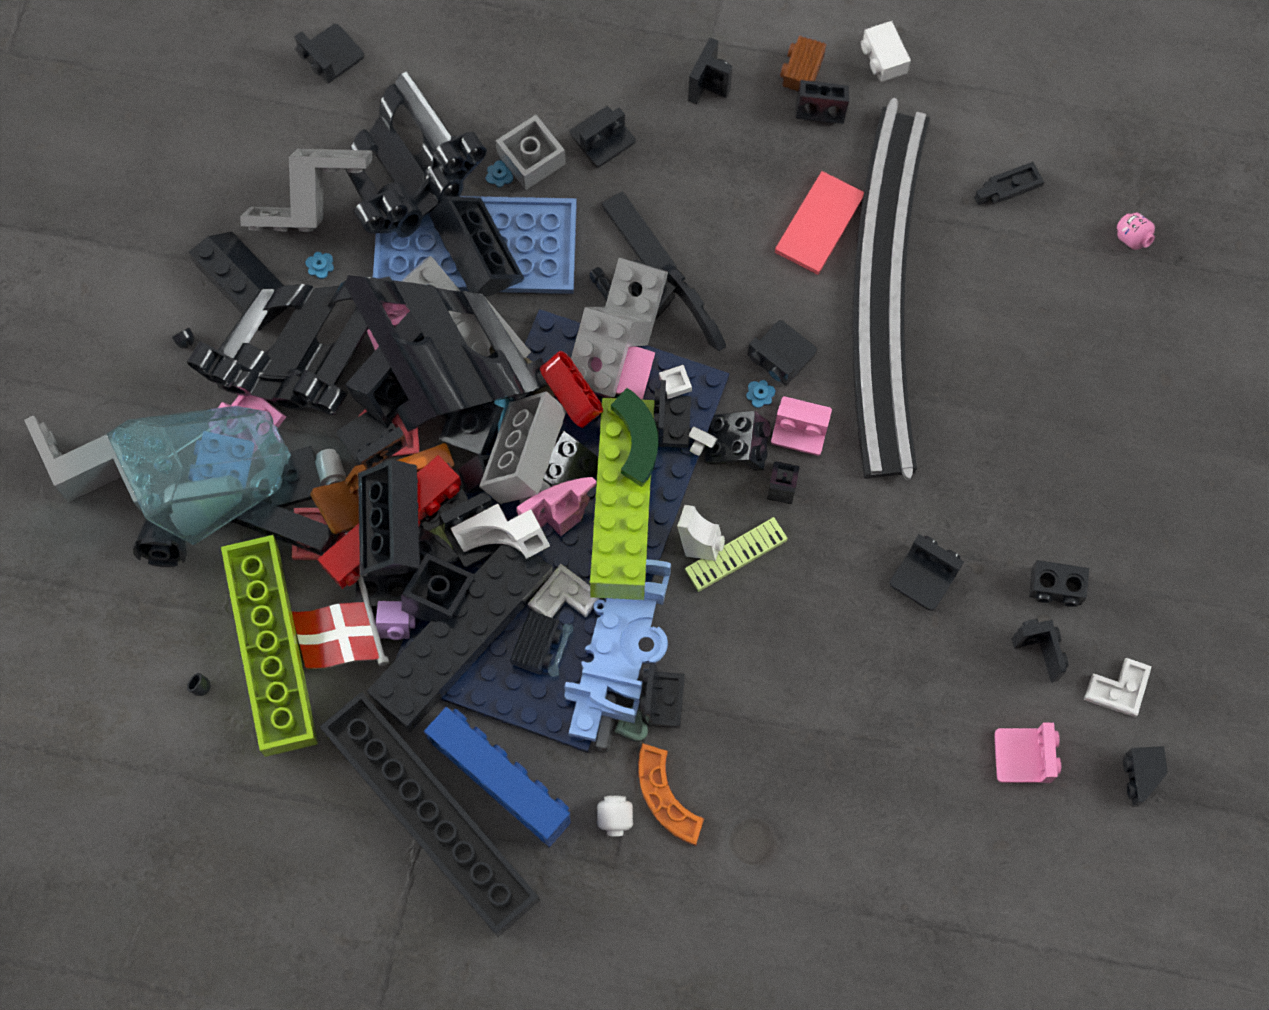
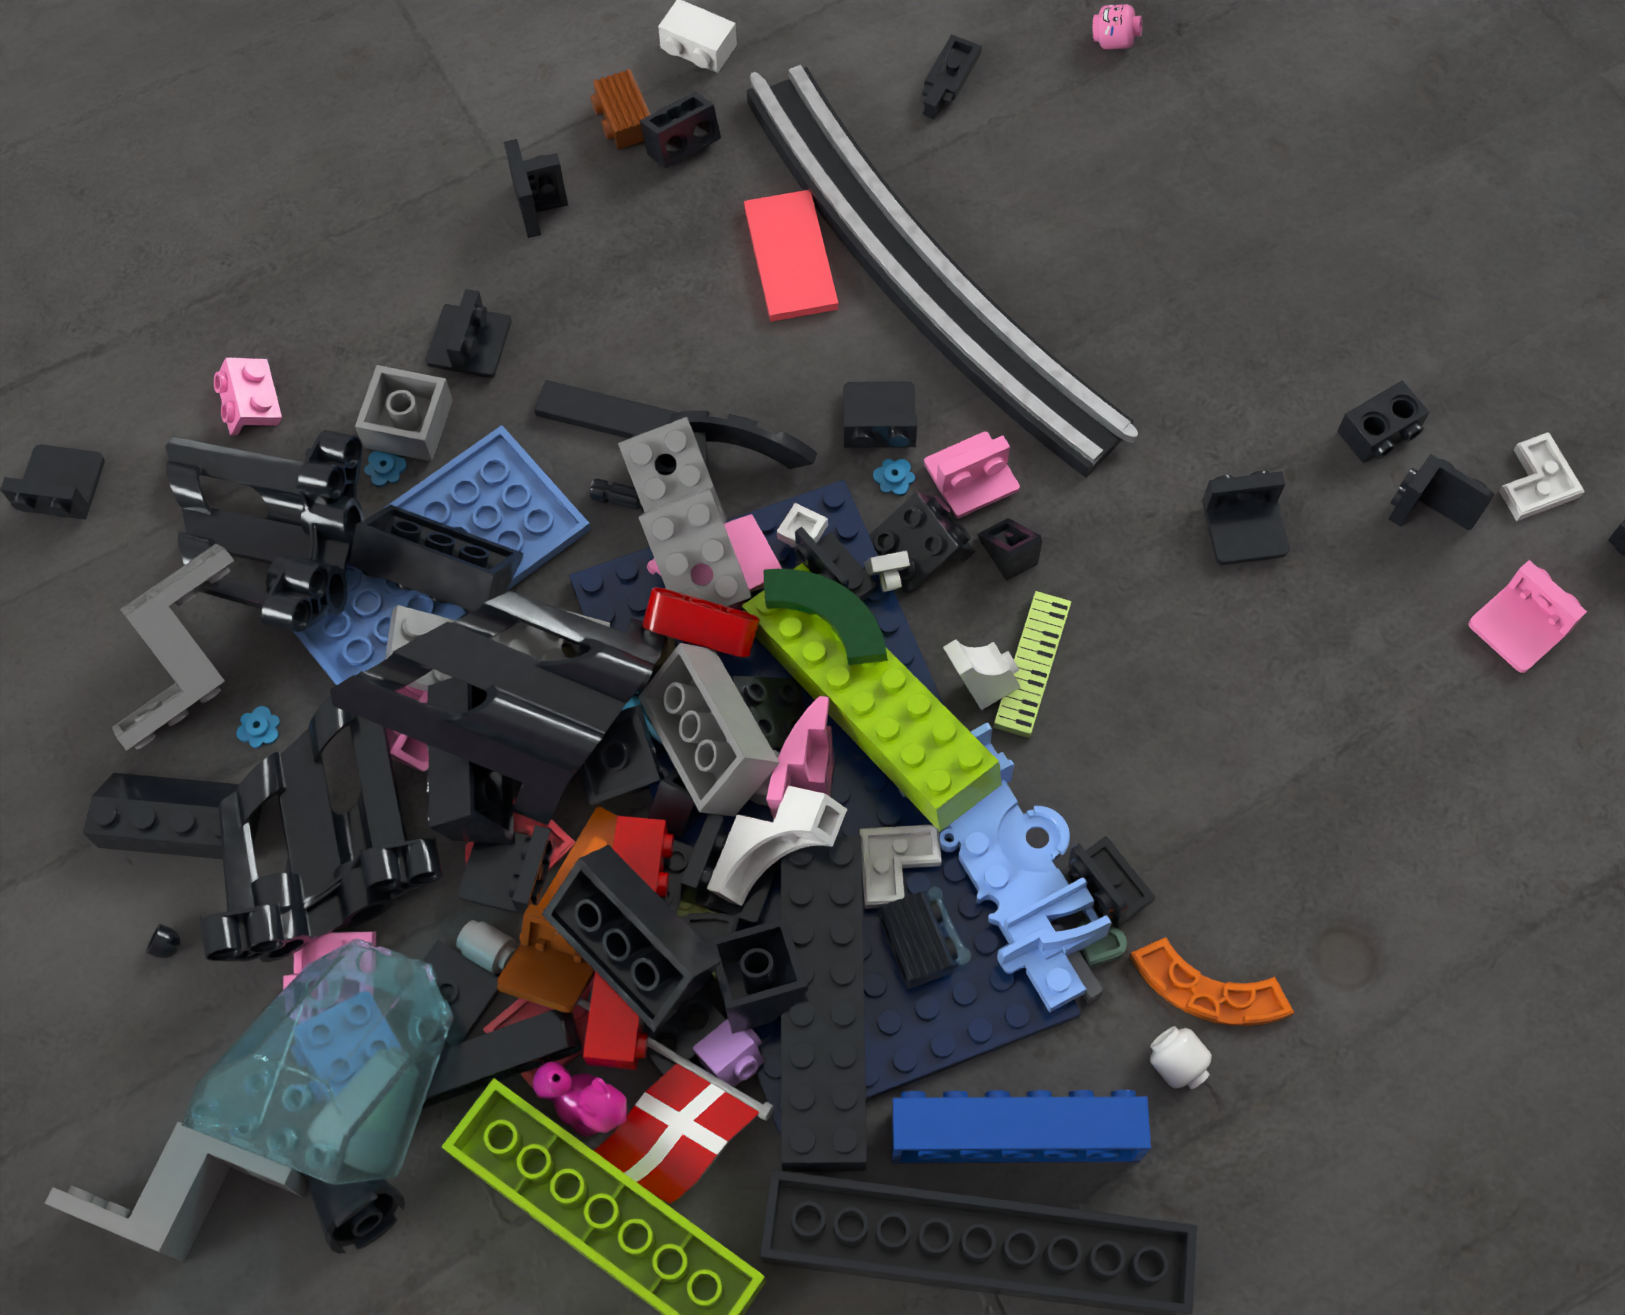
camera: 40 degrees left, 5 degrees down
(306, 579) = (581, 1099): none -> dark pink animal
(463, 77) = (247, 394): none -> bright pink bracket

